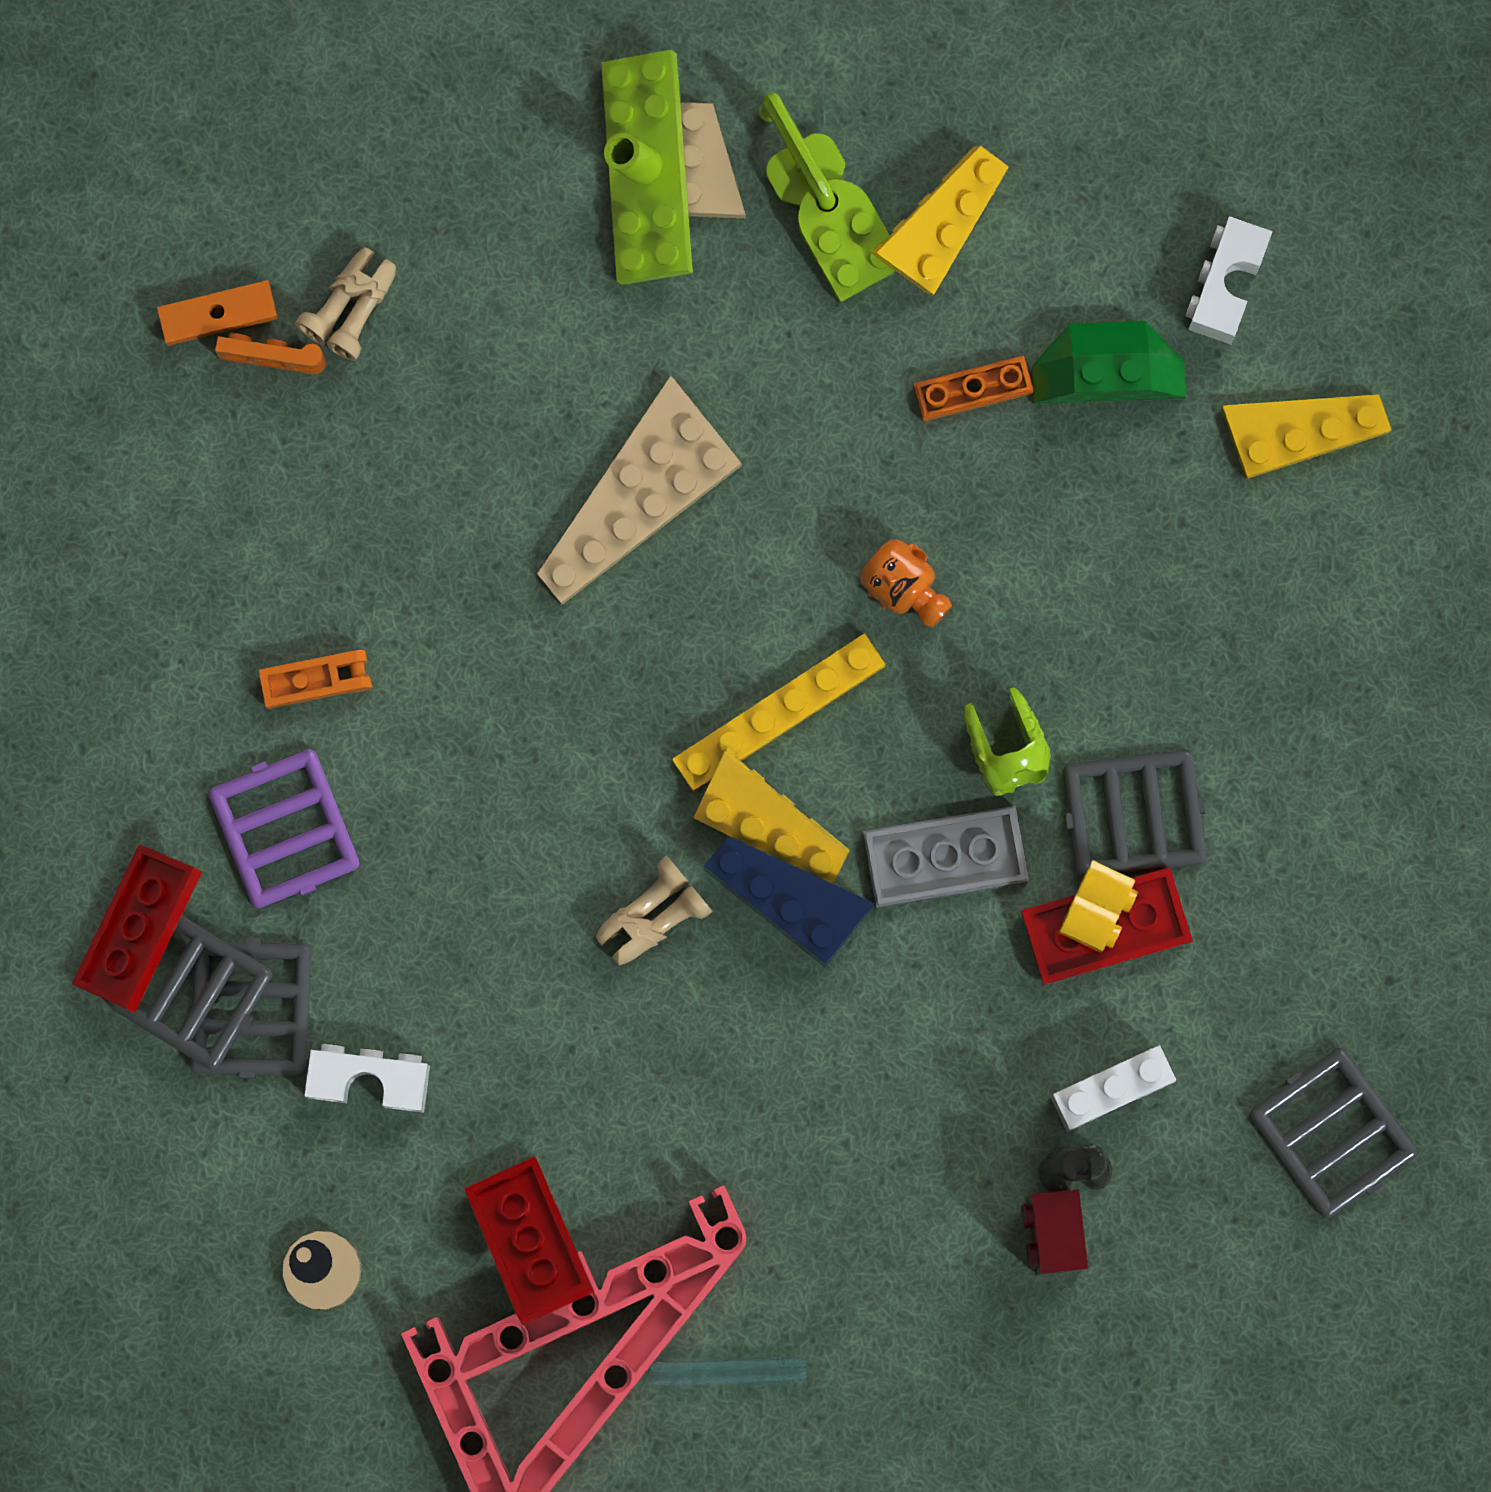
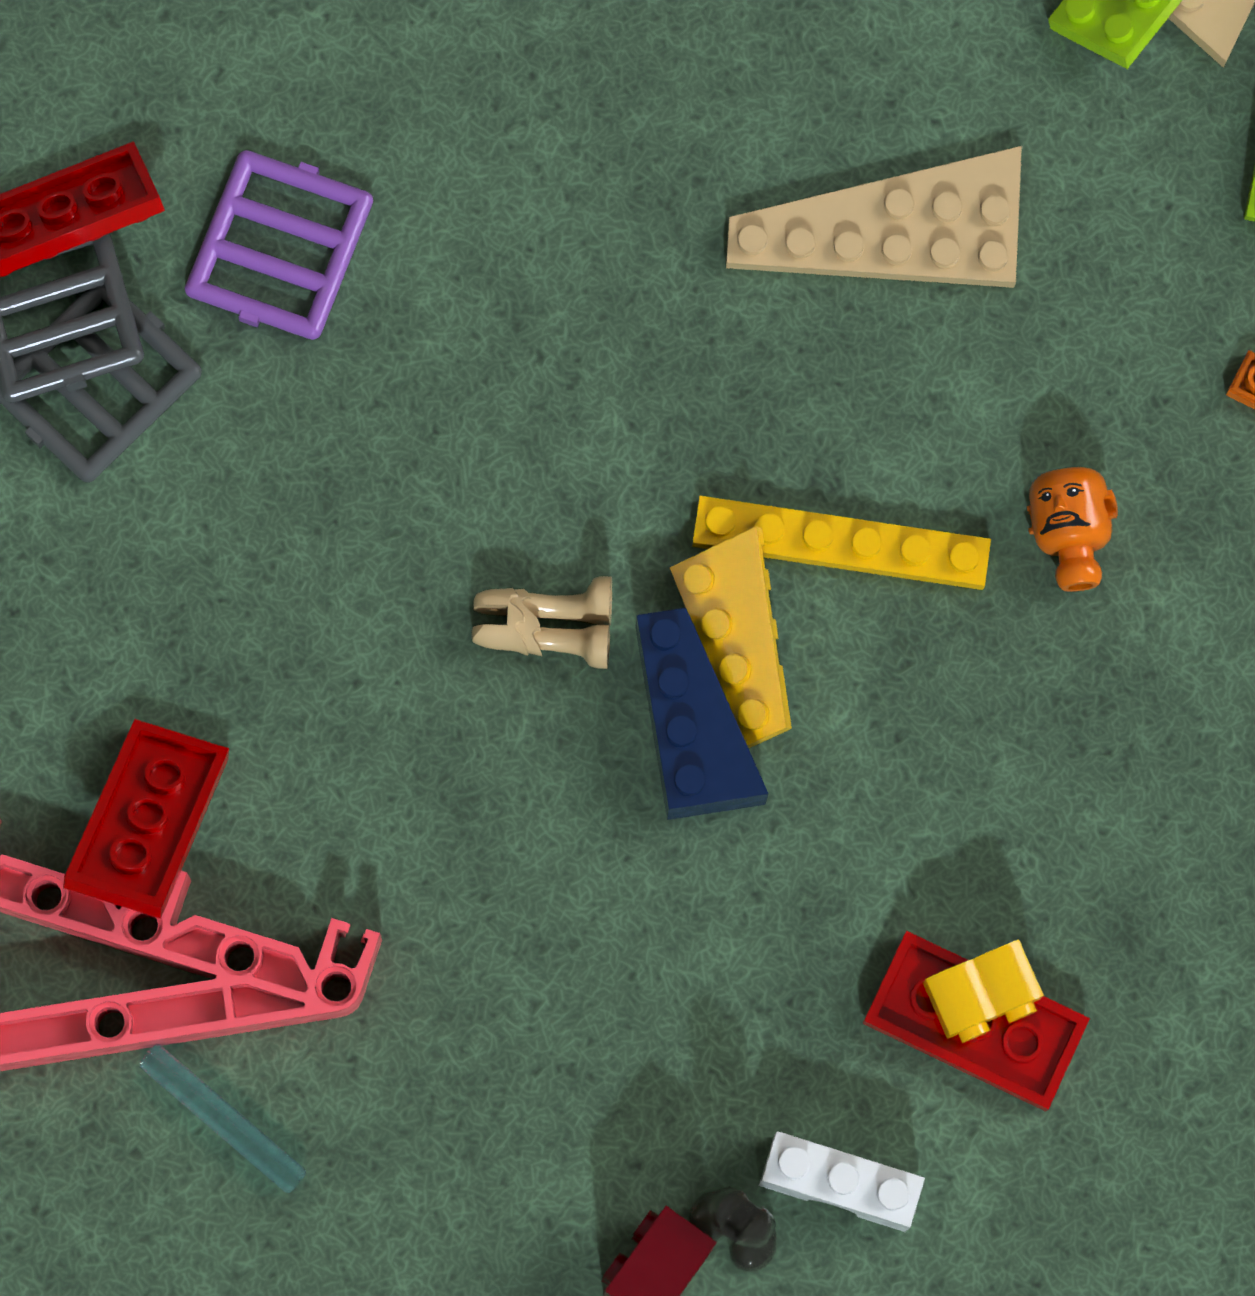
camera: 35 degrees right, 5 degrees down
(314, 679) = (433, 133): orange plate -> none
(333, 1073) = (114, 504): white arch -> none
(945, 856) = (879, 817): light grey tile -> none
(1016, 768) = (1021, 786): lime piece -> none
(1147, 765) = (1155, 904): dark grey bar -> none

